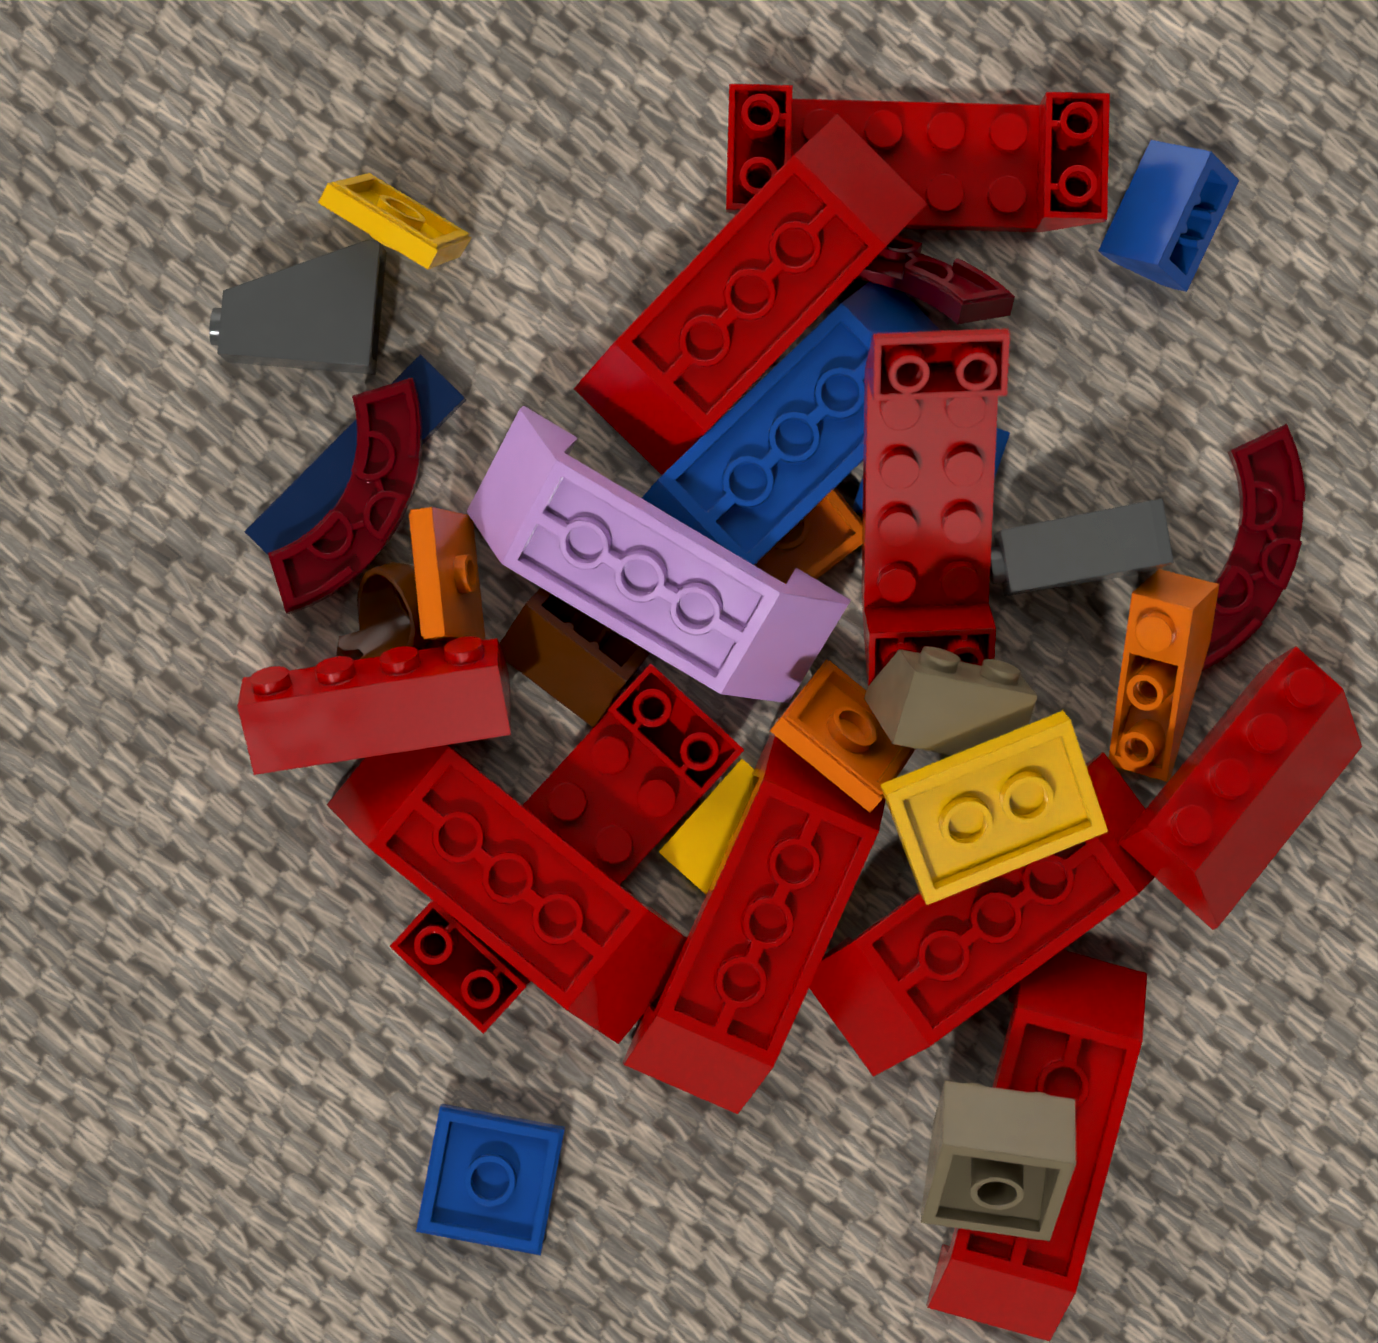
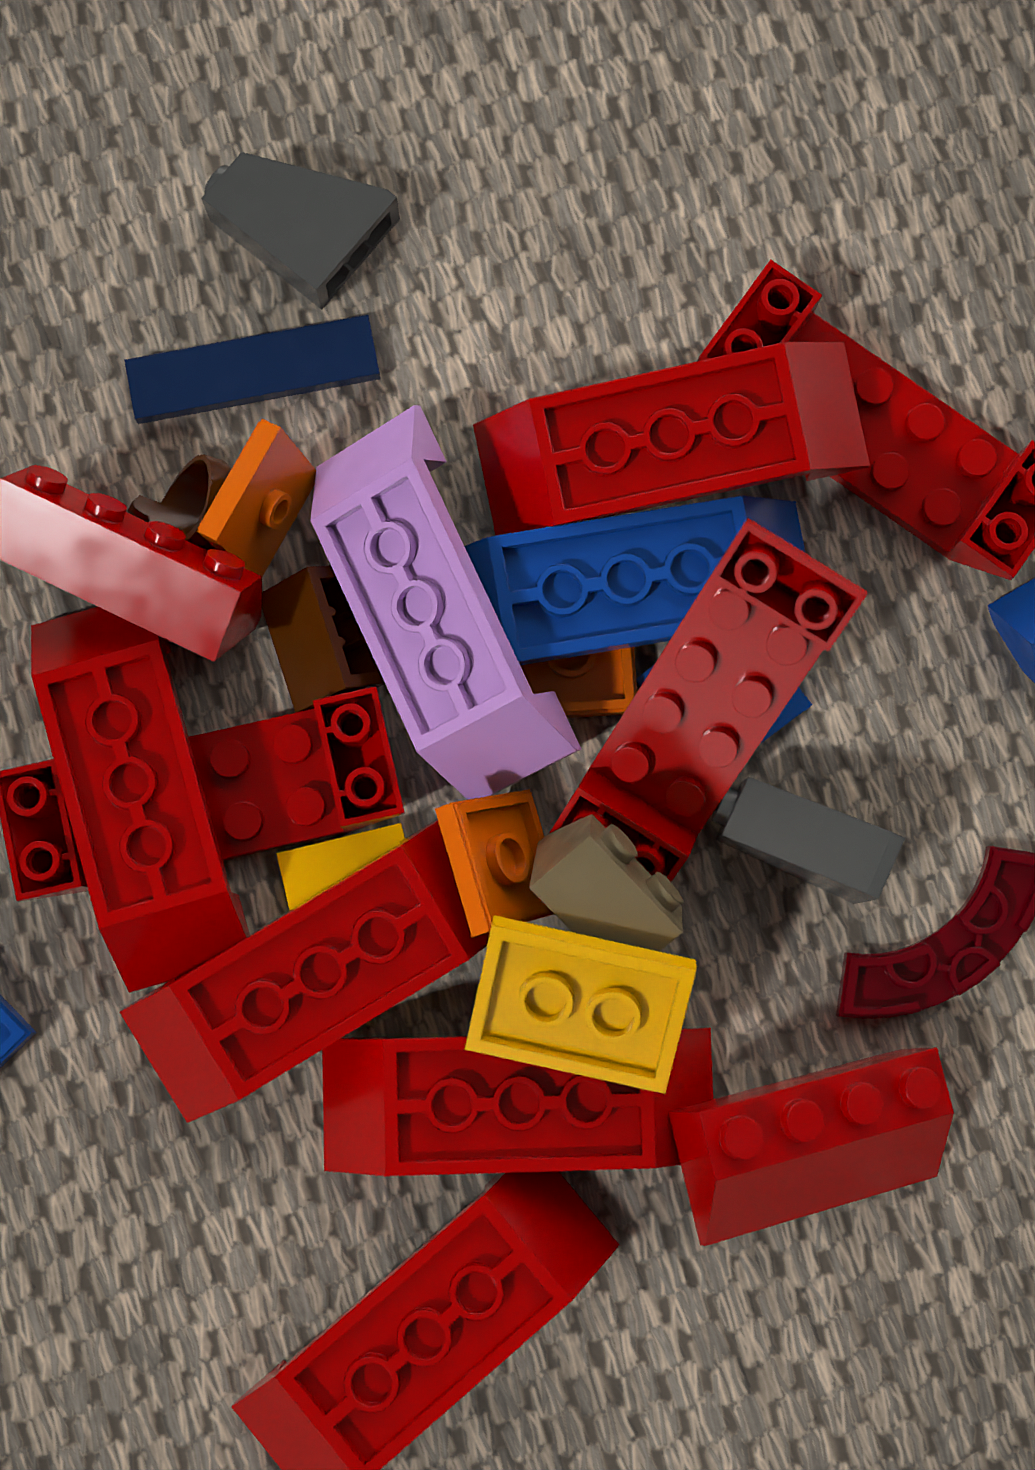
camera: 30 degrees right, 5 degrees down
(369, 508) = (226, 414): dark red tile -> none
(395, 220) = (420, 188): yellow plate -> none
(955, 290) = (849, 554): dark red tile -> none
(999, 1160) = (374, 1319): dark tan slope -> none
(1160, 670) = (805, 990): orange slope -> none

